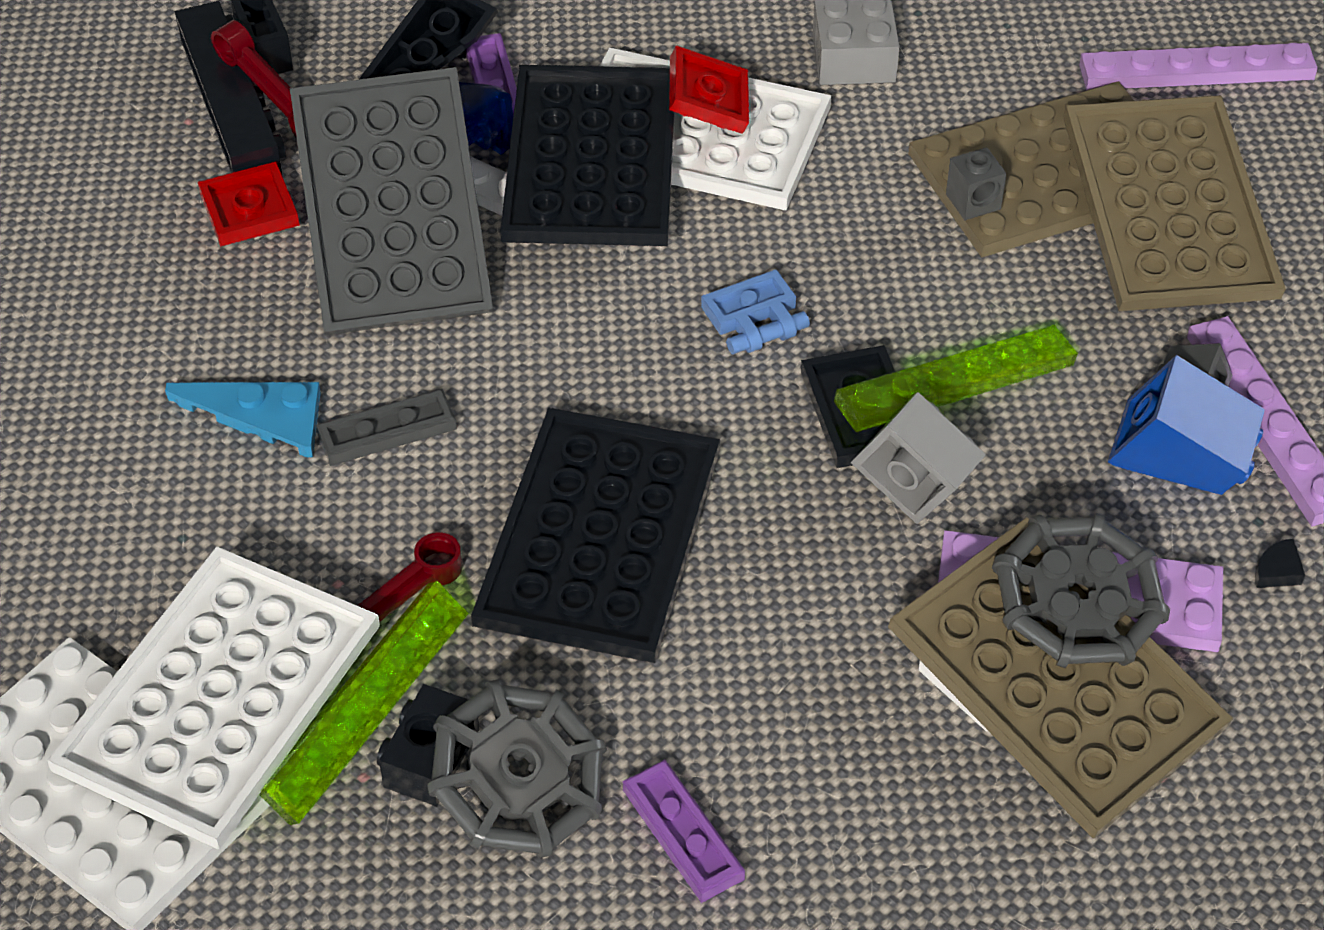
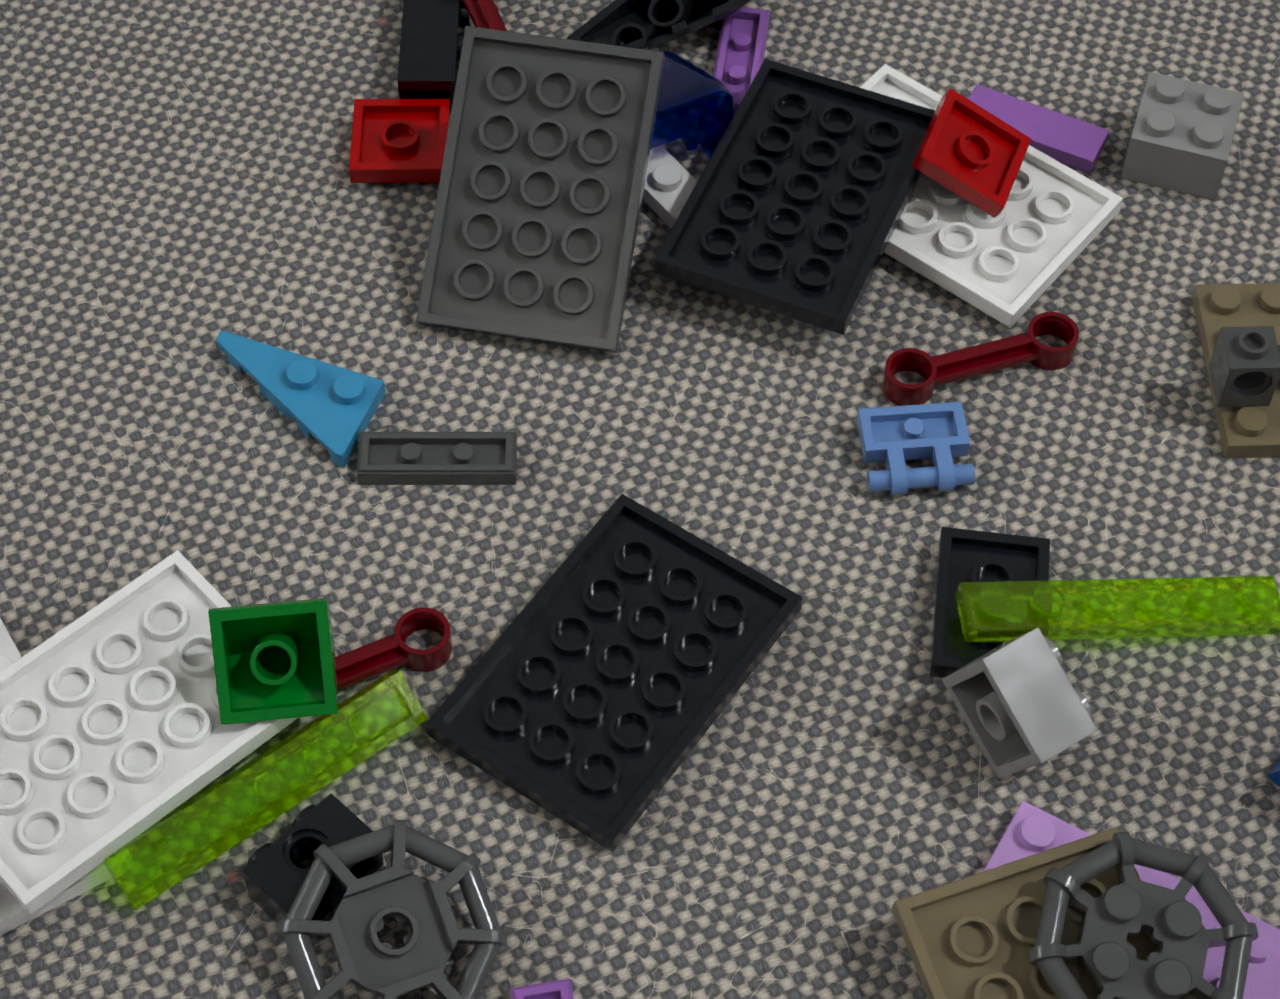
camera: 20 degrees right, 5 degrees up
(340, 595) = (274, 661): none -> green slope
(764, 65) = (1050, 132): none -> medium lavender tile
(774, 237) = (980, 359): none -> dark red piece

